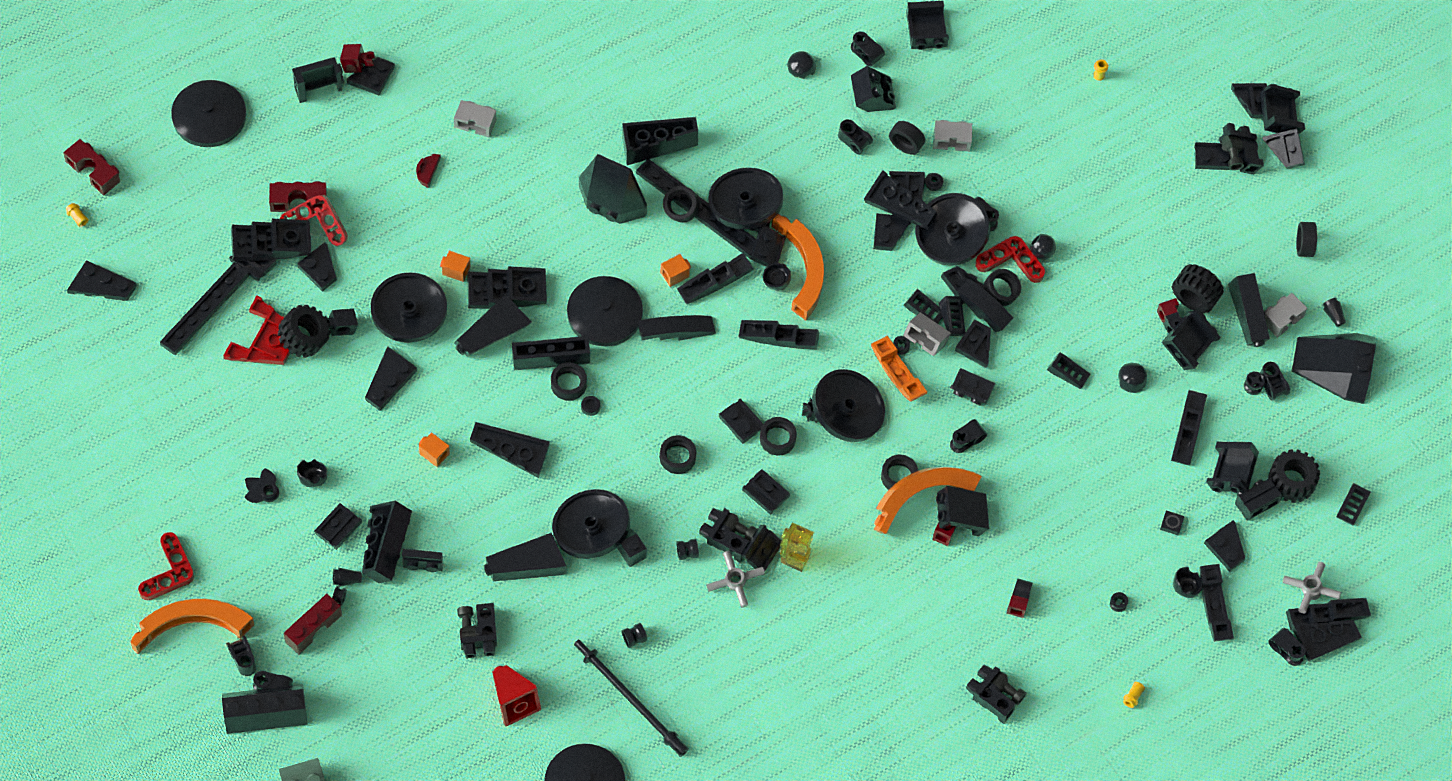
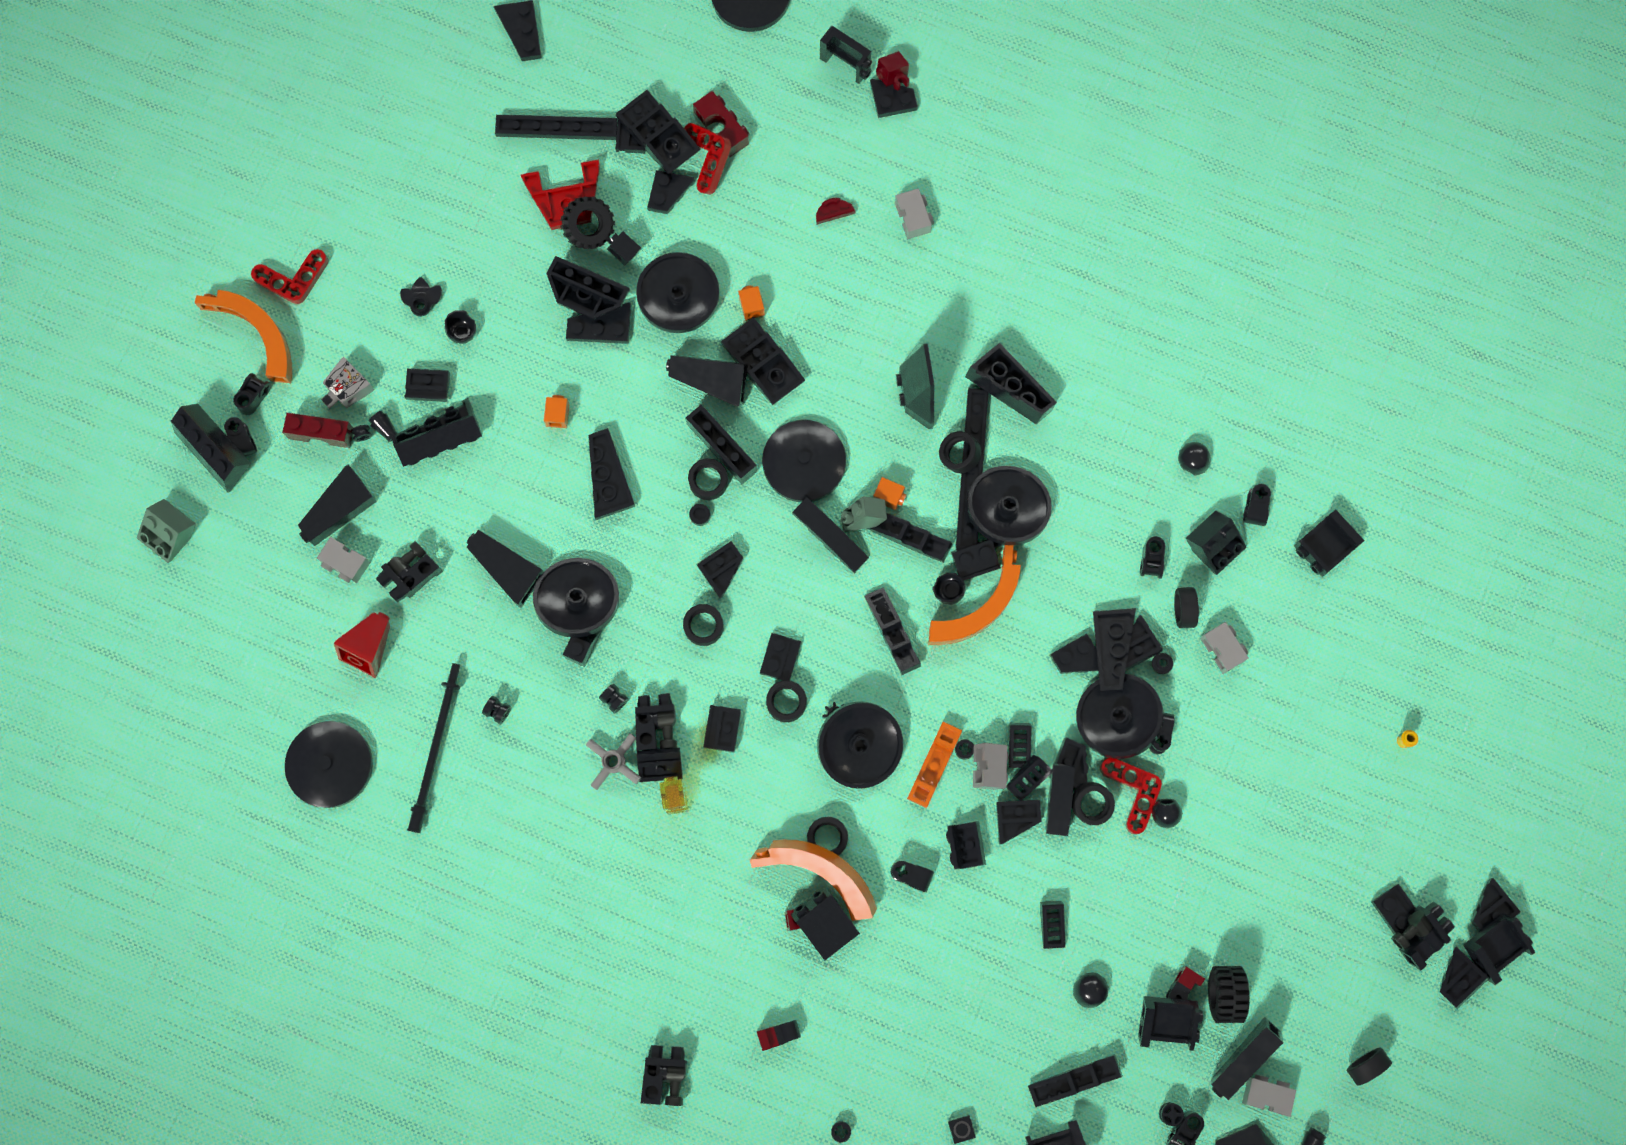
camera: 60 degrees right, 15 degrees up
(291, 582) = (345, 385): none -> light grey torso
(356, 366) = (584, 290): none -> black wedge
(384, 646) = (337, 506): none -> black slope
(421, 559) = (436, 473): black plate -> none
(432, 672) = (336, 557): none -> light grey brick
(643, 416) = (721, 567): none -> black wing
(679, 294) = (864, 514): none -> sand green slope

